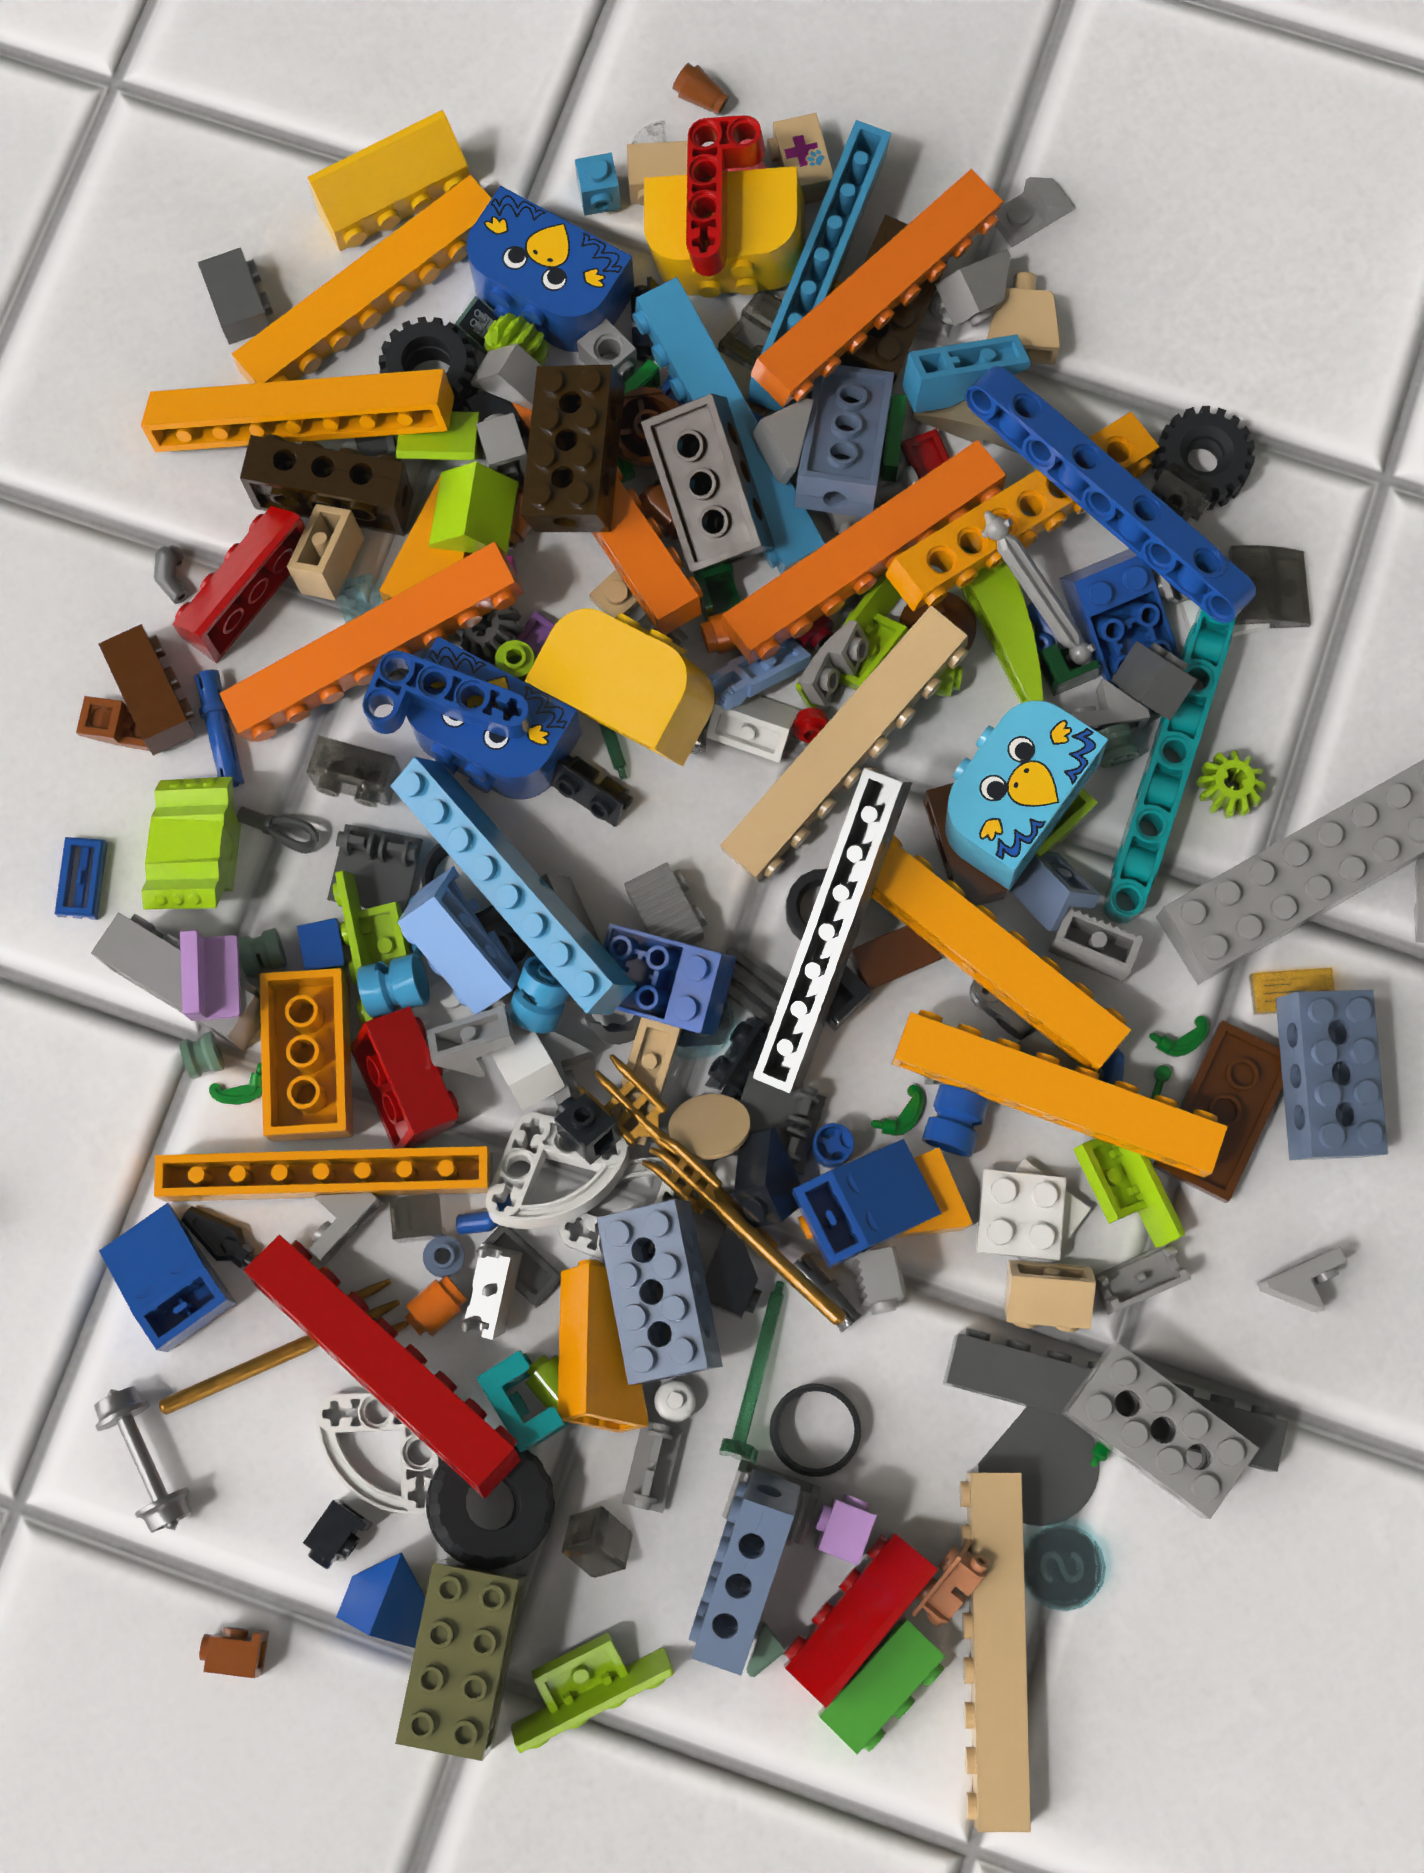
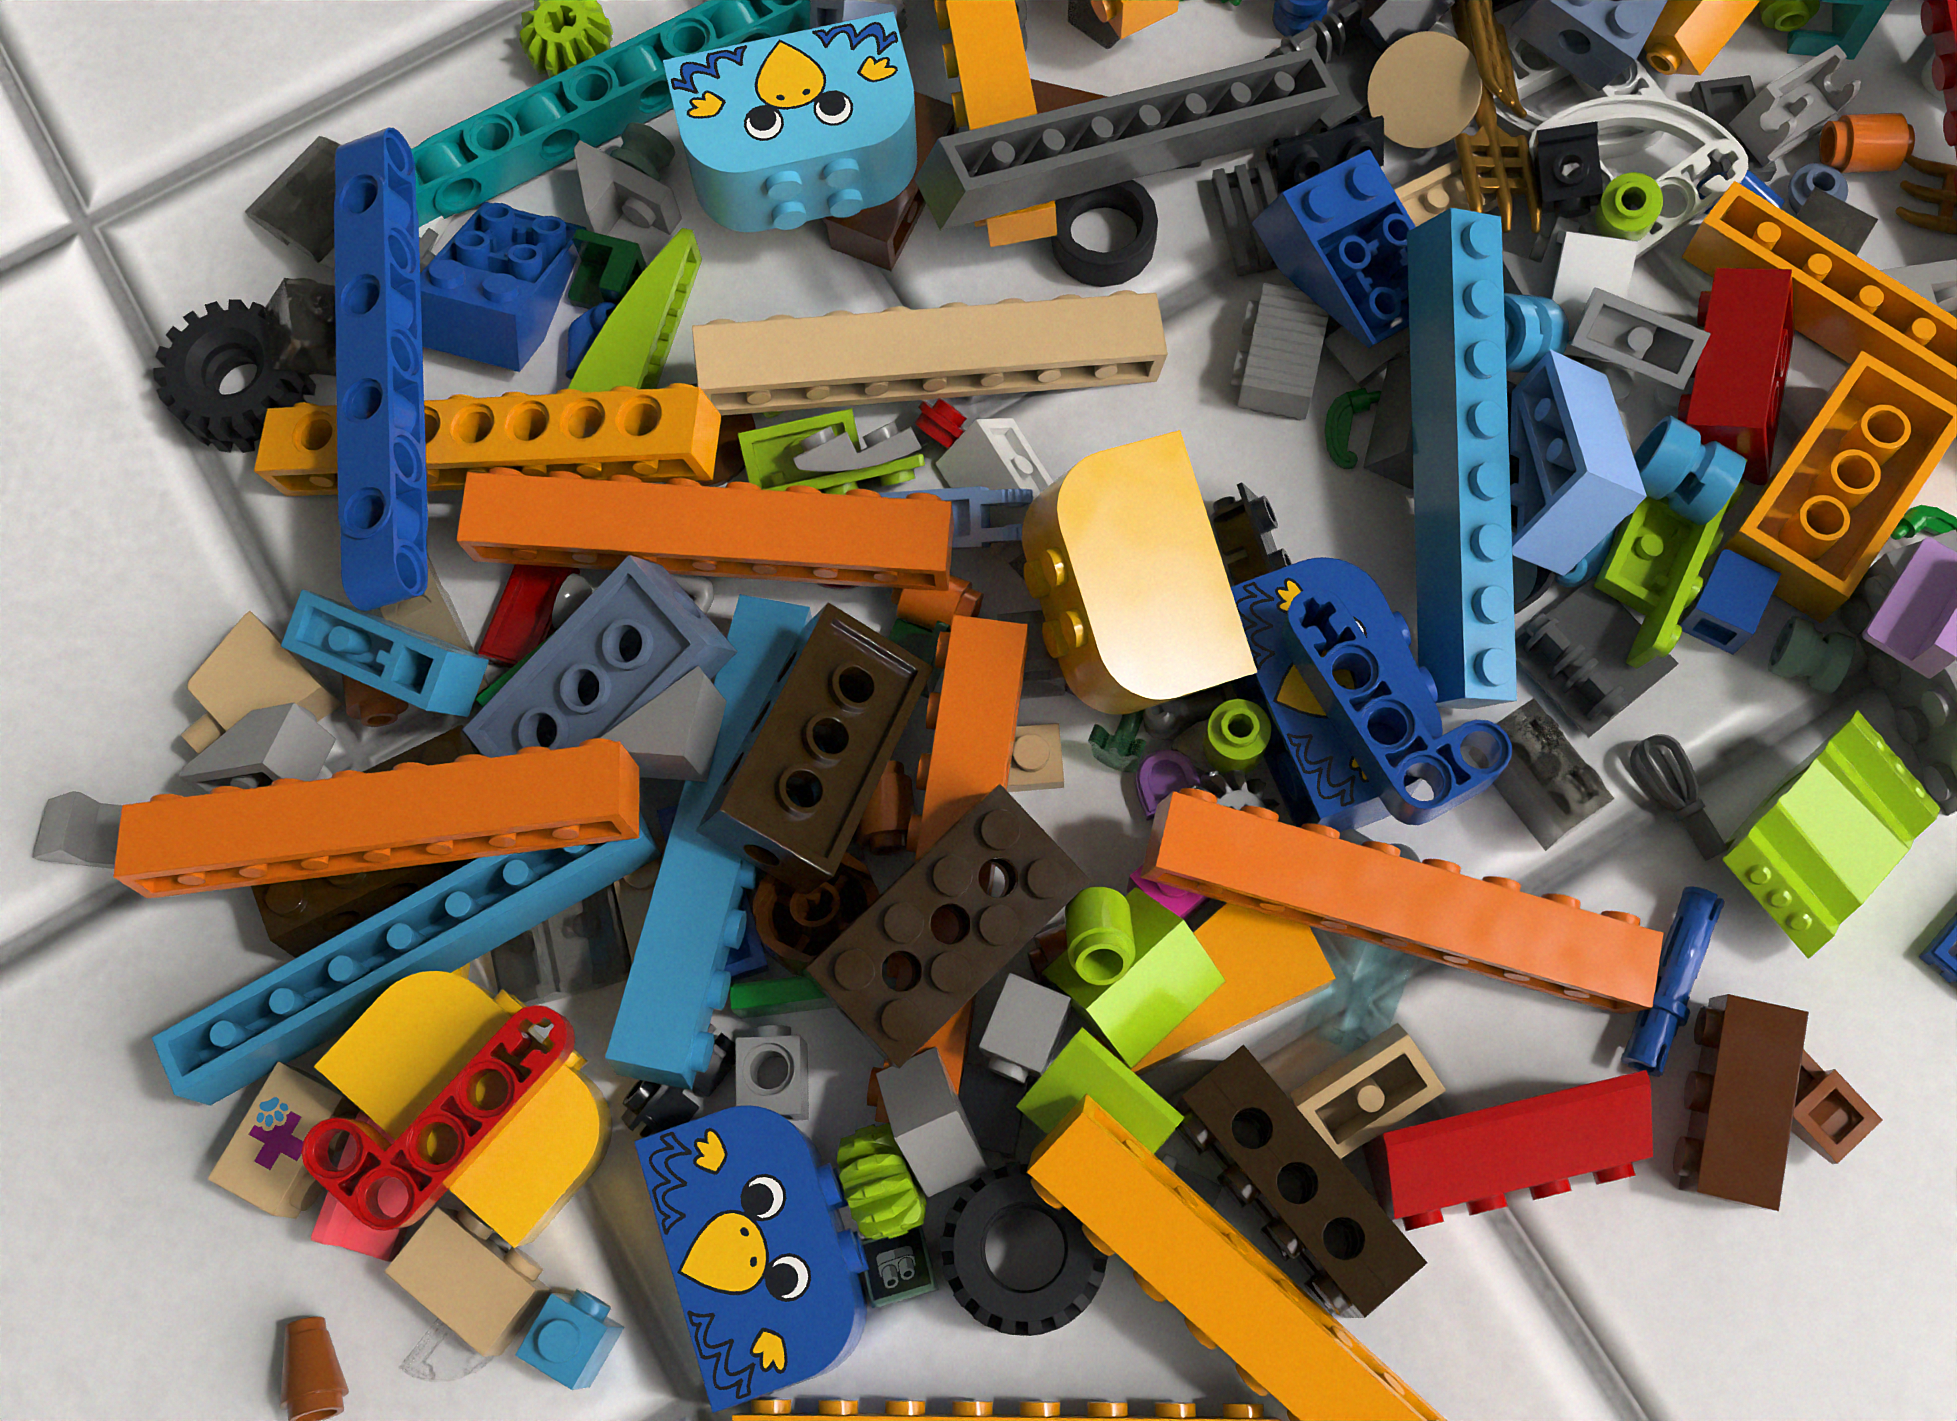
camera: 135 degrees left, 5 degrees down
(165, 573) = (1599, 1262): dark grey arm -> none
(496, 496) = (1099, 935): none -> lime brick
(533, 1122) = (1616, 220): none -> lime brick
(604, 901) = (1339, 424): none -> green piece
(1037, 589) = (560, 339): light grey wheel -> none
(1155, 678) = (538, 161): dark grey brick -> none

